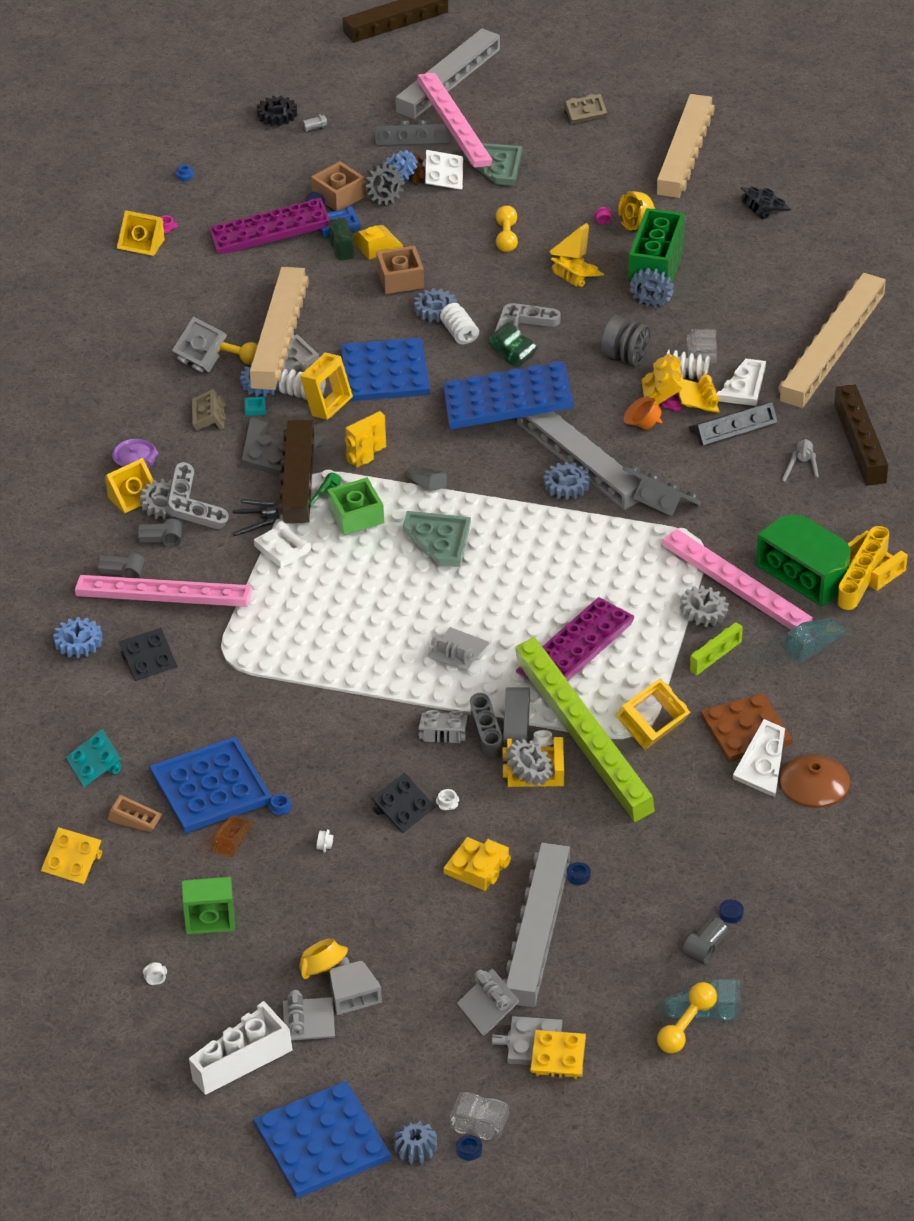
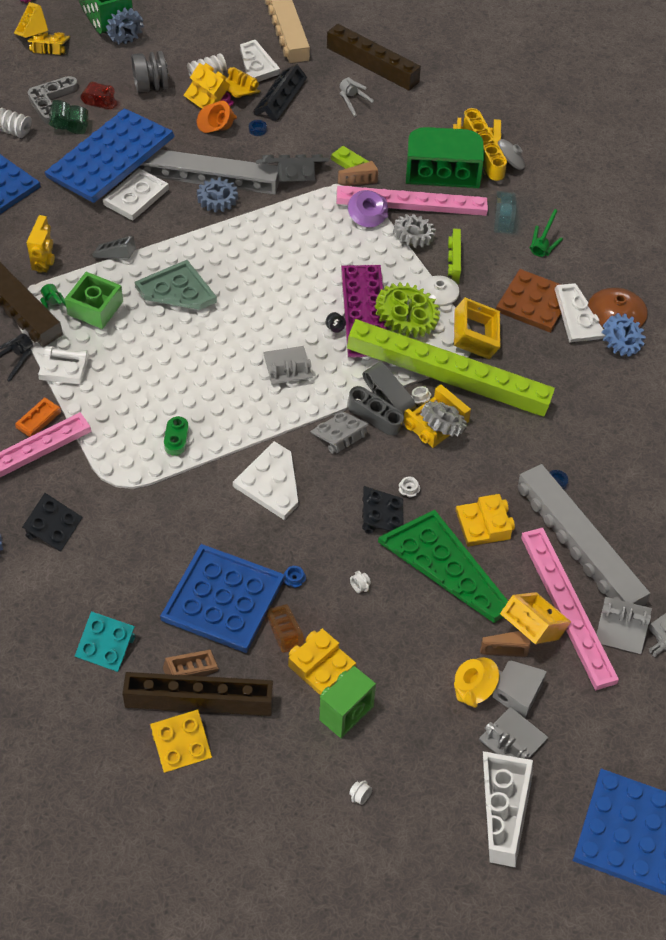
camera: 45 degrees left, 10 degrees up
(115, 832) = (198, 693): none -> dark brown brick
(223, 573) = (38, 417): none -> orange plate
(234, 864) = (319, 660): none -> yellow plate
(307, 648) = (177, 431): none -> green plate
(346, 728) = (271, 481): none -> white plate
(383, 955) = (506, 644): none -> medium nougat slope
(406, 926) = (531, 617): none -> yellow window
(408, 865) = (440, 555): none -> green wing
(463, 964) = (566, 601): none -> bright pink plate
(498, 442) = (136, 194): none -> white plate
(540, 633) = (340, 324): none -> black bush
(563, 341) = (99, 96): none -> clear red piece
(597, 656) = (393, 309): none -> lime gear
(665, 665) = (441, 289): none -> white dish
(676, 443) = (257, 127): none -> clear blue tile
(681, 563) = (368, 208): none -> medium lavender piece
(704, 343) = (199, 47): clear brick -> none
(719, 532) = (364, 174): none -> medium nougat slope
(726, 517) = (347, 158): none -> lime plate
(779, 807) = (623, 334): none -> medium blue gear
(810, 684) = (540, 245): none -> green plant
(881, 591) = (512, 153): none -> light grey dish

